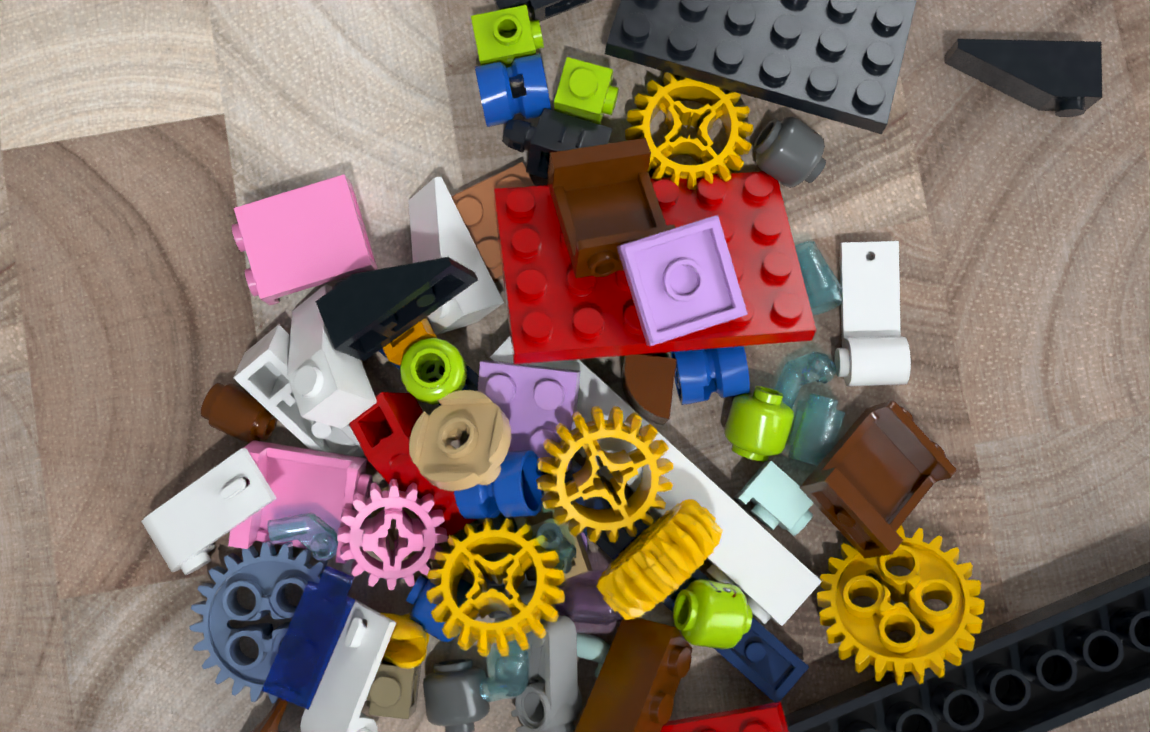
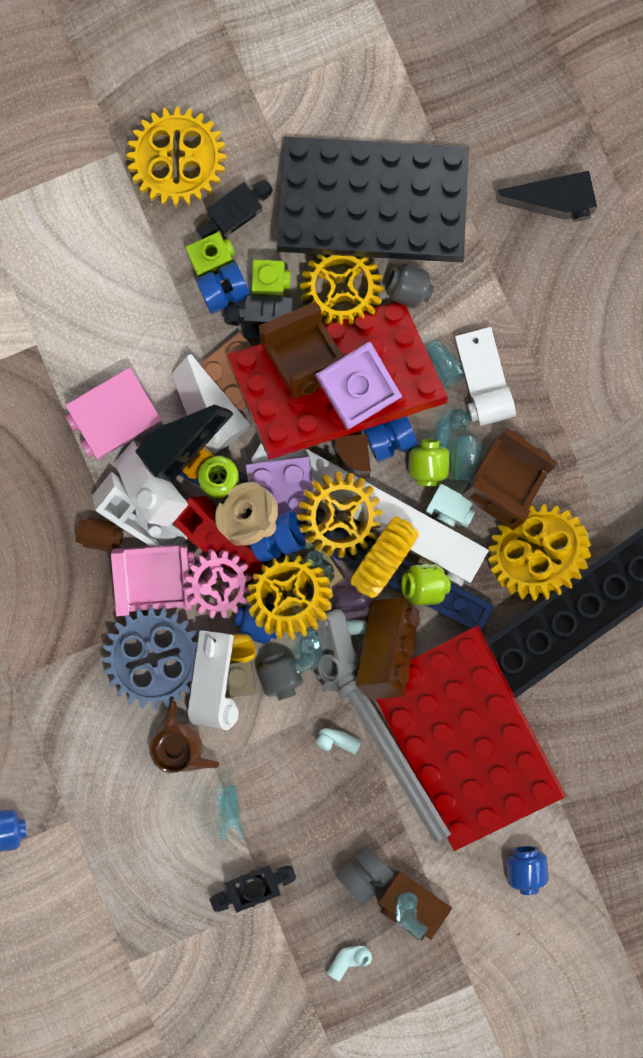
camera: 15 degrees left, 0 degrees up
(207, 511) = (97, 598): white door -> none
(309, 530) = (162, 595): clear light blue arm -> none
(311, 638) = (184, 657): clear blue hinge -> none

